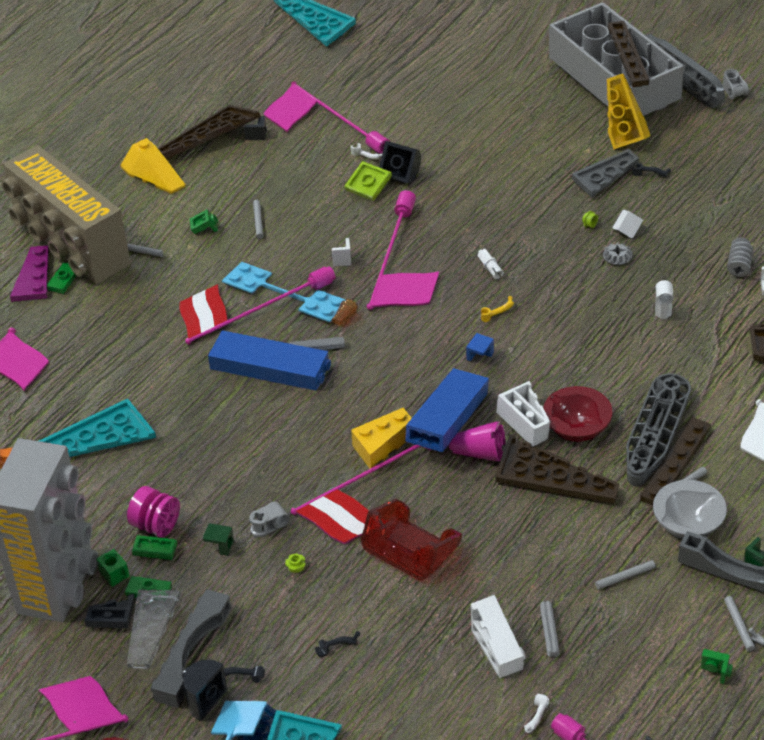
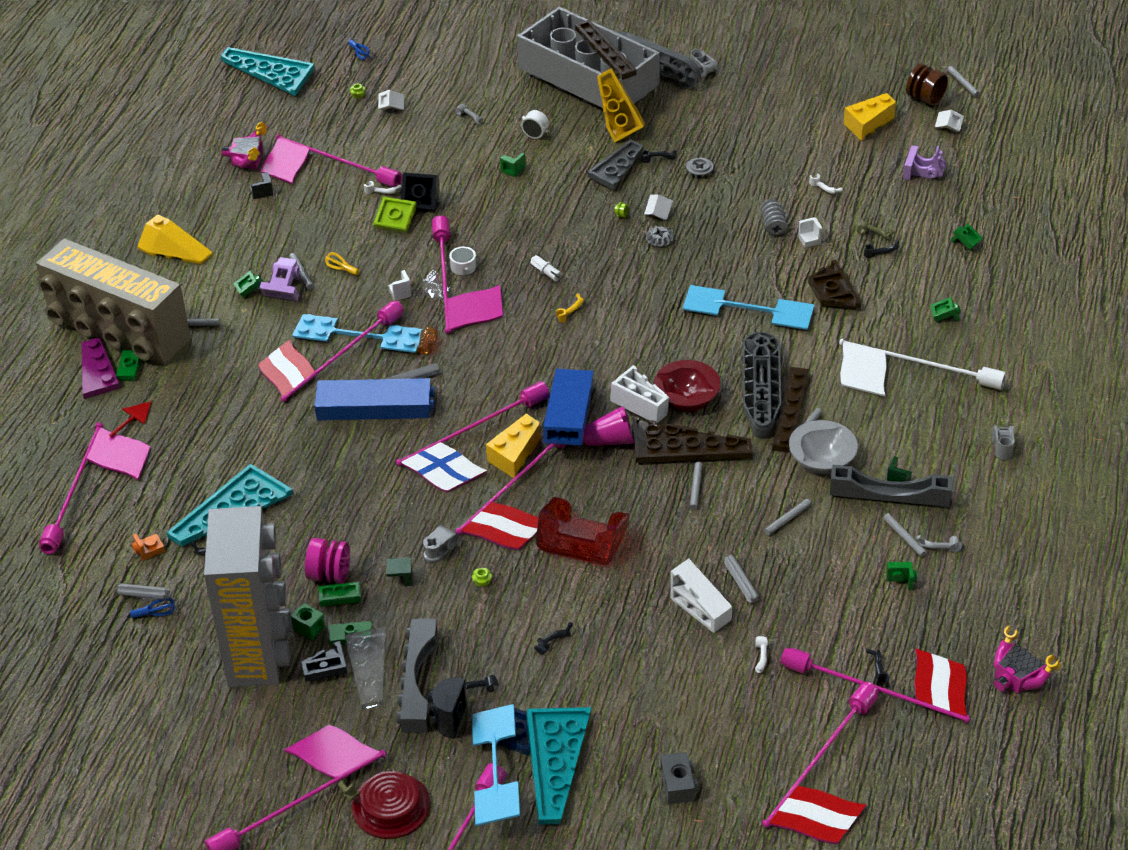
camera: 20 degrees left, 0 degrees up
(51, 325) = (137, 412): none -> red piece
(210, 128) = (216, 192): dark brown wing -> none
(231, 232) = (281, 287): none -> lavender tile
(258, 92) = (246, 150): none -> torso
(299, 221) = (345, 266): none -> yellow piece
(310, 443) = (450, 469): none -> flag
(373, 259) = (432, 286): none -> clear panel
(386, 52) = (357, 90): none -> lime plate
(404, 9) = (357, 47): none -> blue piece
(412, 67) = (391, 99): none -> white panel
(412, 239) = (462, 260): none -> white piece
(476, 88) = (462, 108): none -> light grey piece
(480, 345) = (570, 343): blue panel -> none
(502, 154) = (512, 166): none -> green panel
(539, 116) = (535, 124): none -> white piece
(545, 520) = (696, 486): none -> light grey bar
(664, 299) = (723, 267): white piece -> none
(689, 186) = (699, 163): none -> light grey gear
(714, 361) = (786, 313): none -> medium azure hinge

